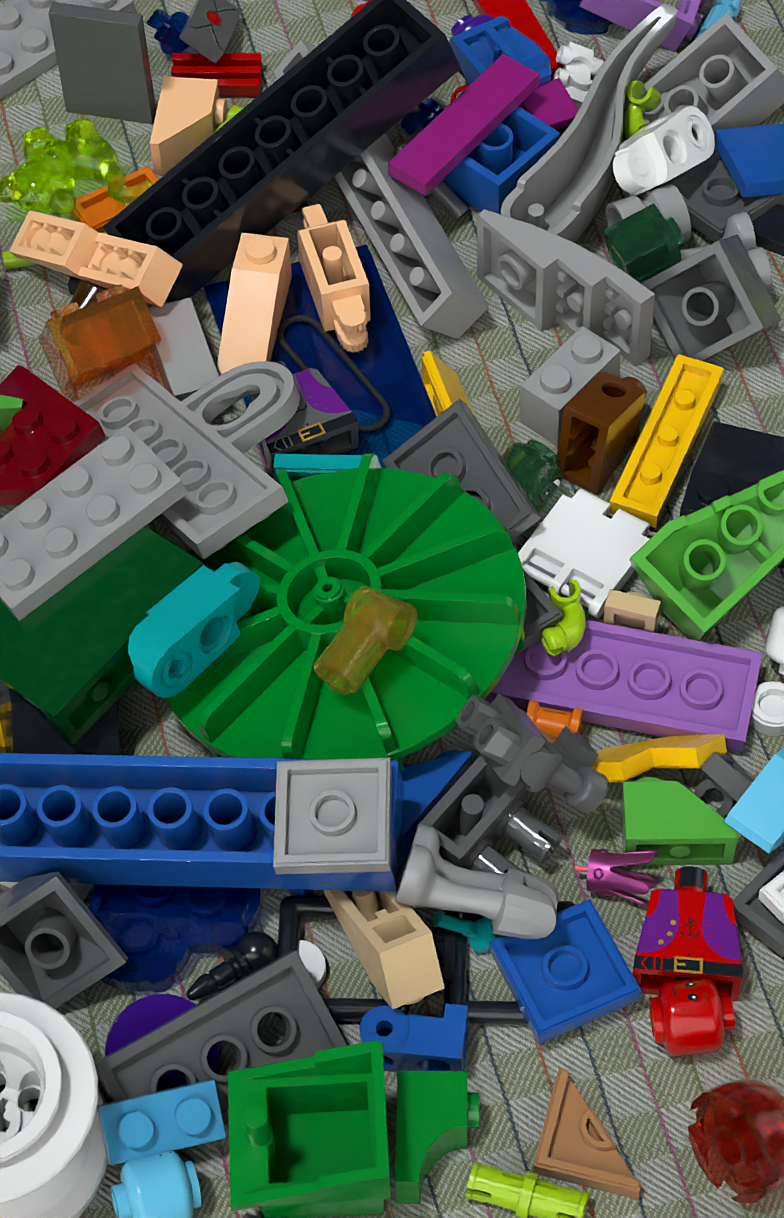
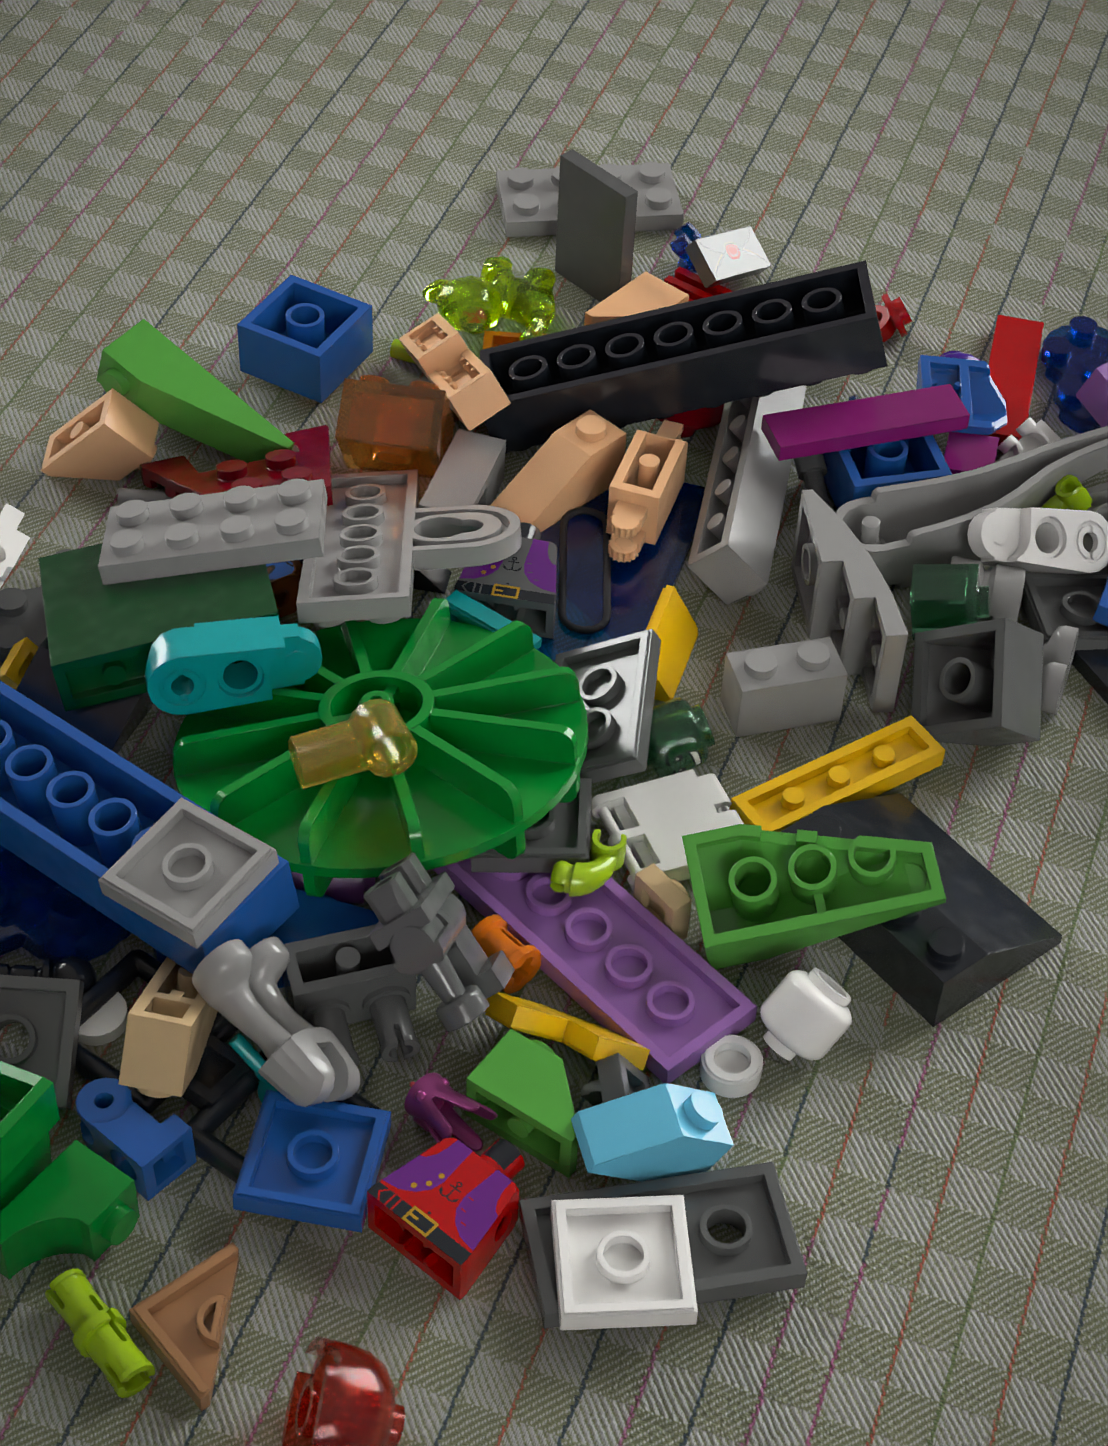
camera: 30 degrees right, 10 degrees down
(602, 410) = (774, 729): reddish brown torso -> none
(690, 1016) = (388, 1274): red head -> none

